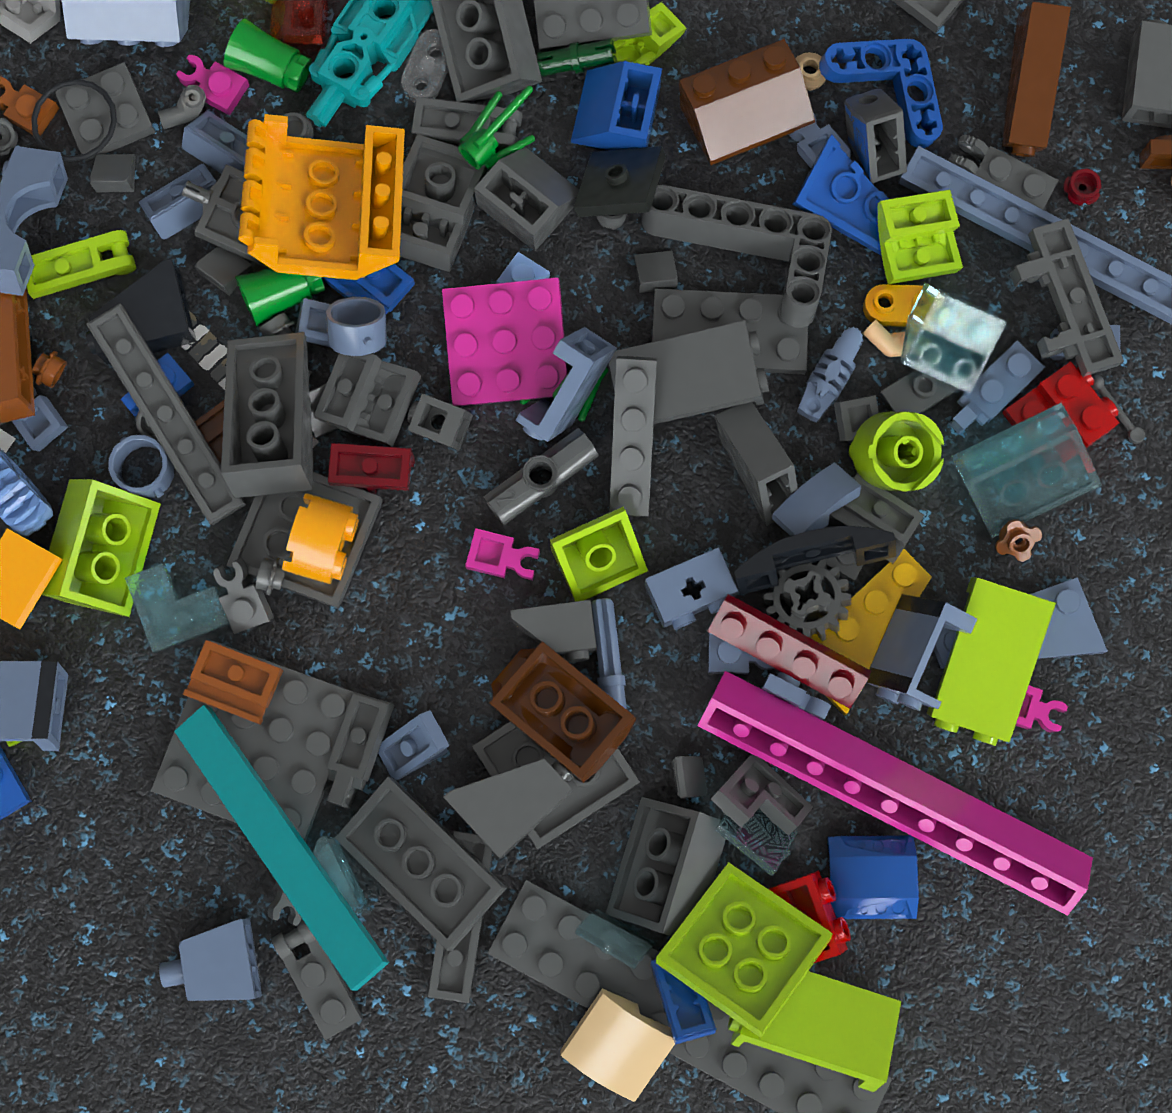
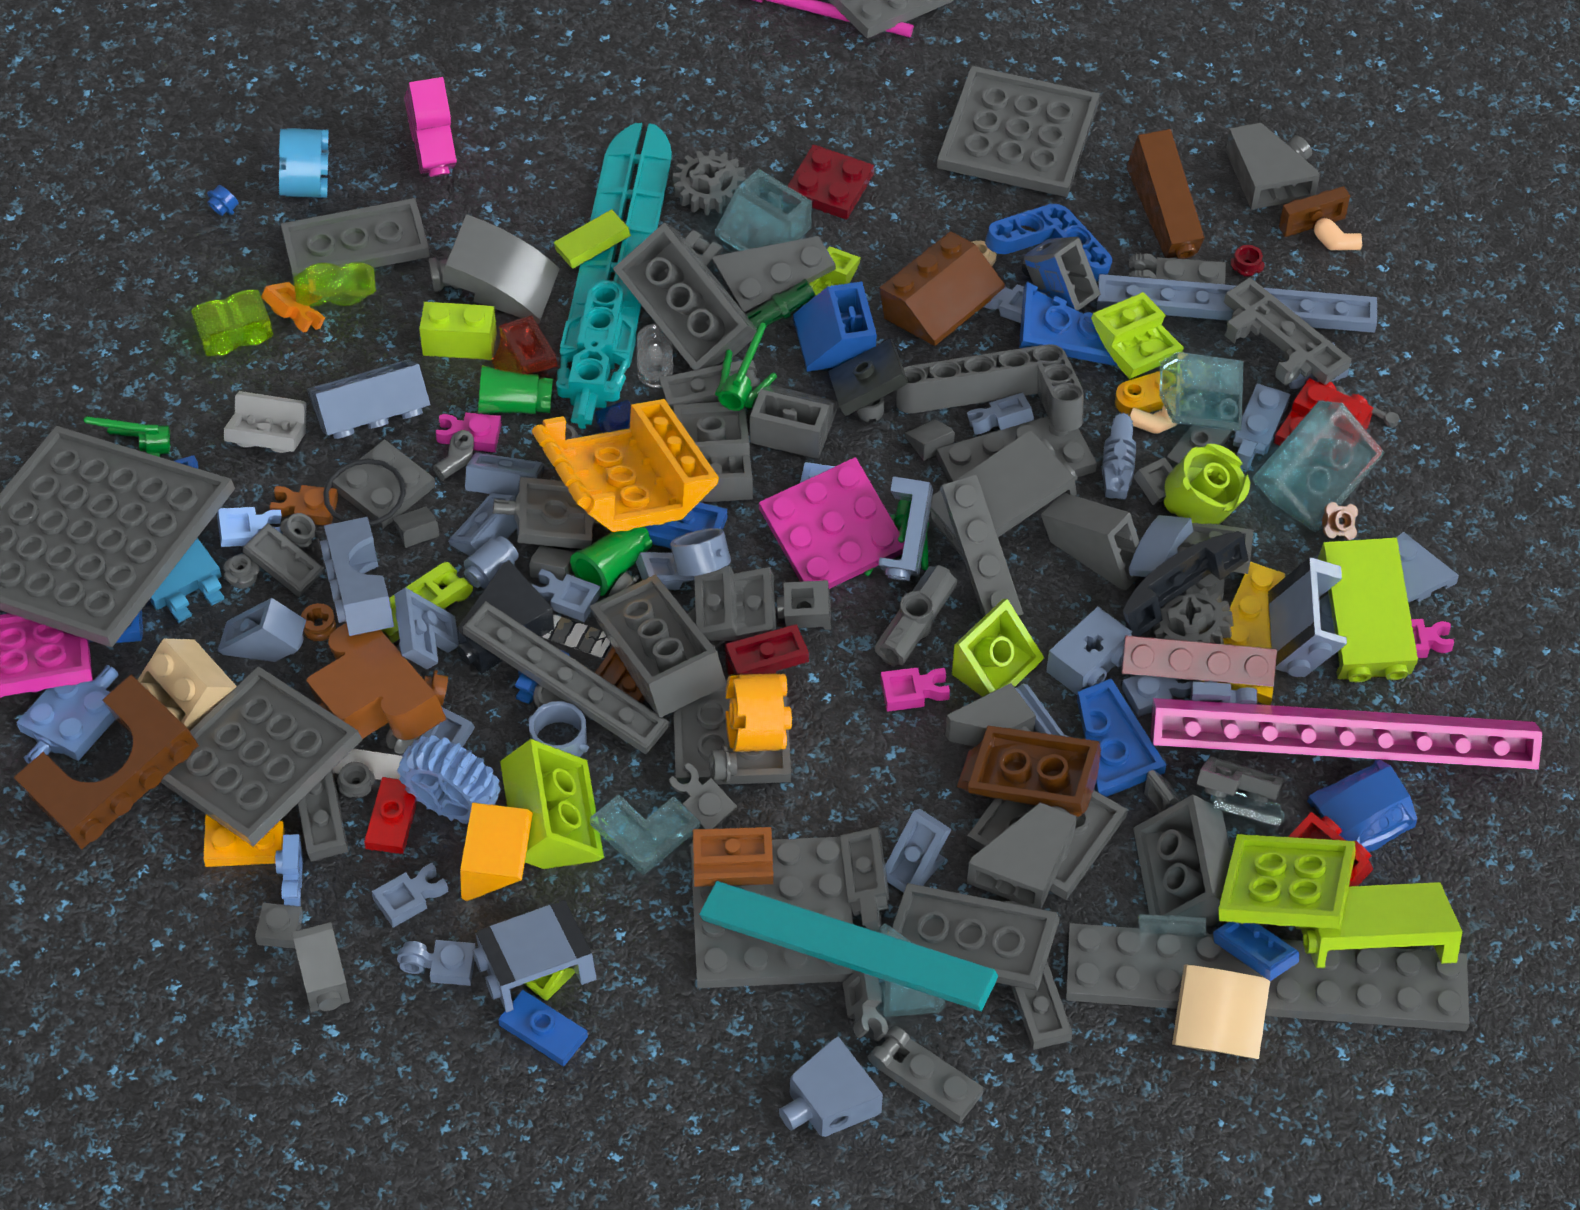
camera: 25 degrees left, 25 degrees down
(51, 297) = (423, 628): none -> sand blue plate
(160, 245) = (487, 560): none -> sand blue brick
(220, 315) = (570, 596): none -> sand blue plate
(354, 124) = (614, 417): none -> clear blue plate
(668, 697) = (1124, 745): none -> blue wing
(743, 275) = (1002, 413): none -> sand blue plate

